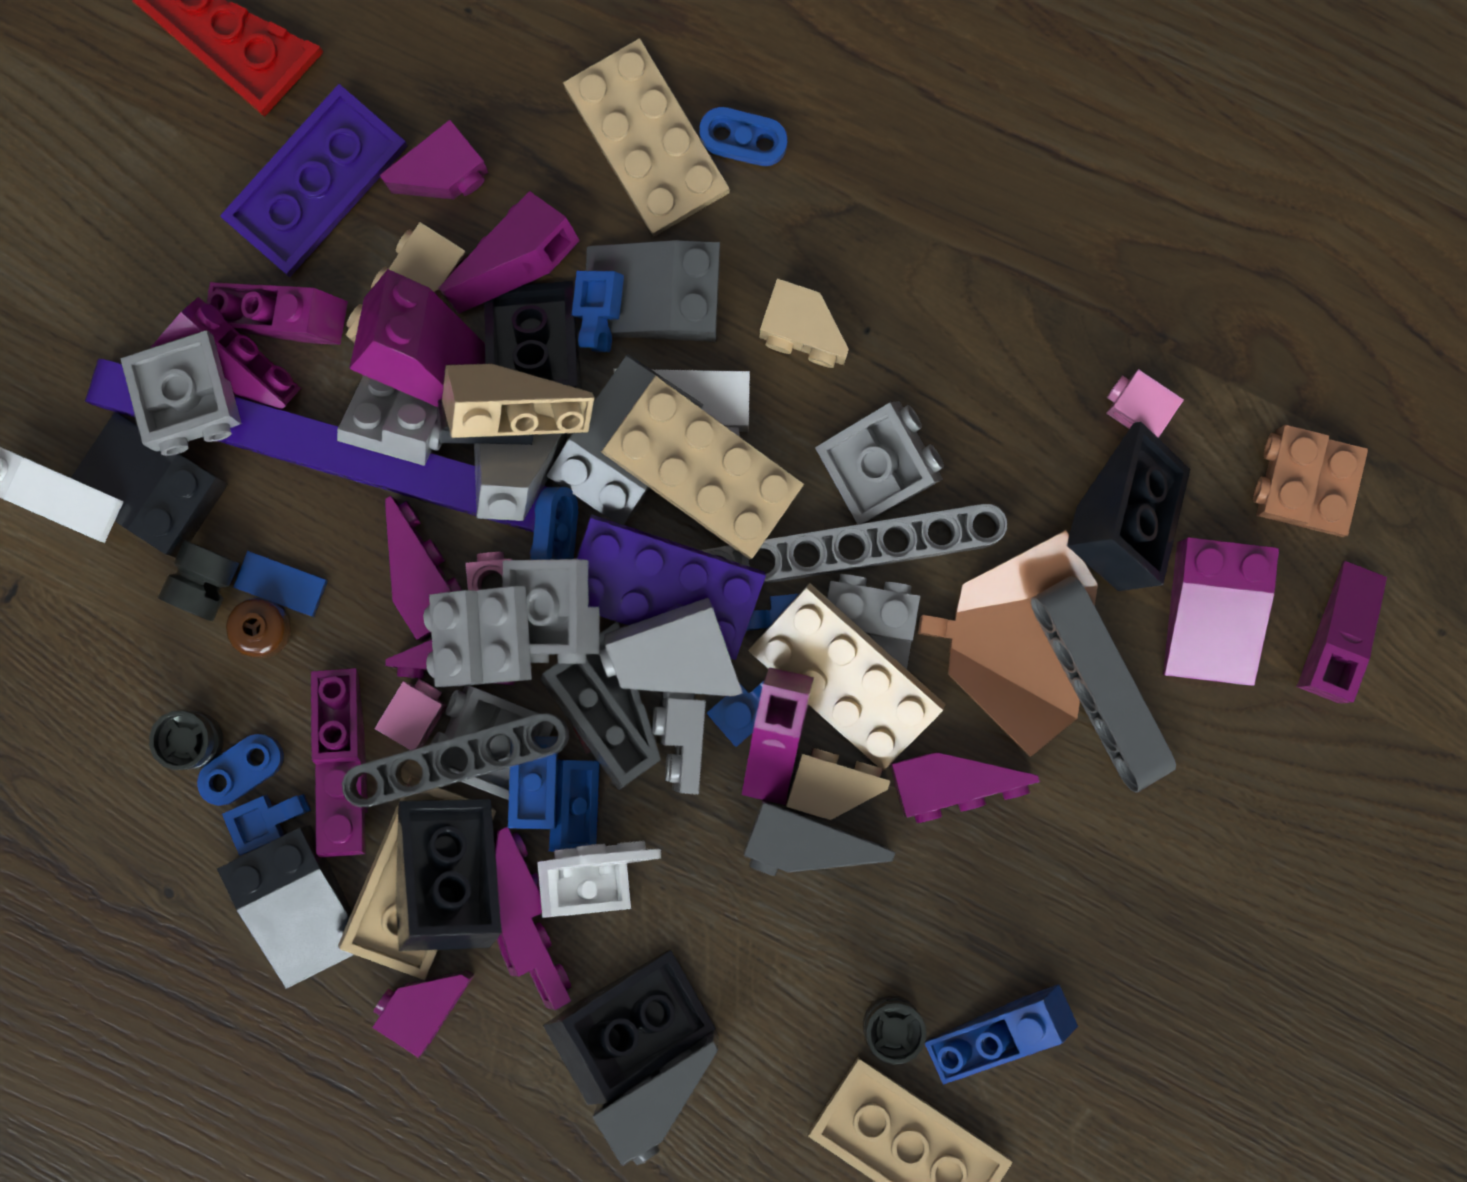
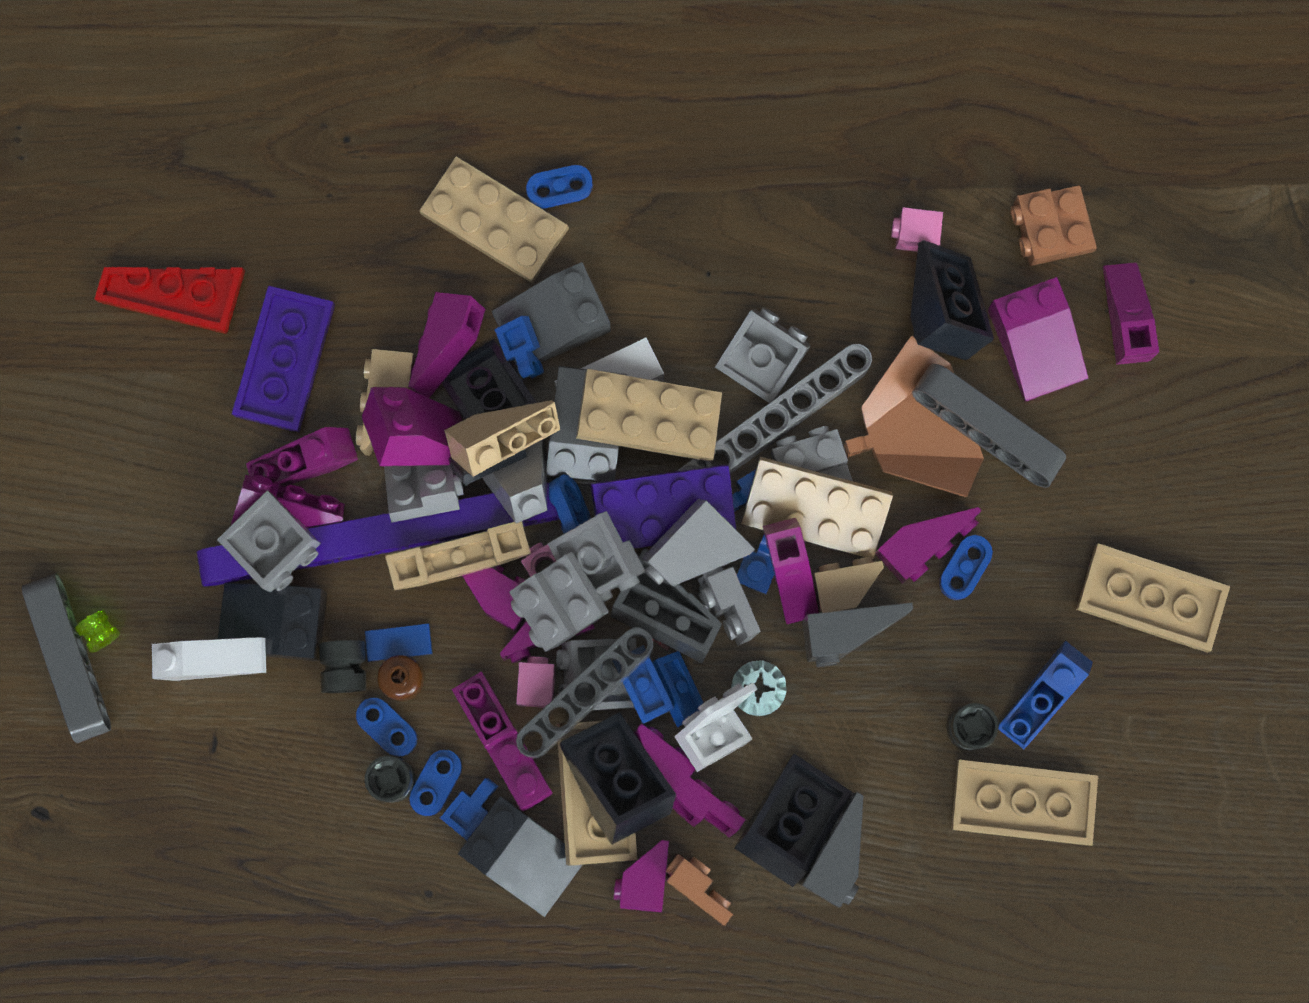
camera: 30 degrees left, 5 degrees down
(219, 673) = (386, 726): none -> blue plate
(390, 521) = (458, 556): none -> tan slope
(438, 167) = (364, 308): magenta slope -> none
(469, 1040) = (692, 881): none -> nougat plate
(692, 849) = (771, 677): none -> light aqua gear
(802, 322) = (664, 288): tan slope -> none
(988, 840) = (965, 568): none -> blue plate
(1190, 987) = (1153, 598): none -> tan plate

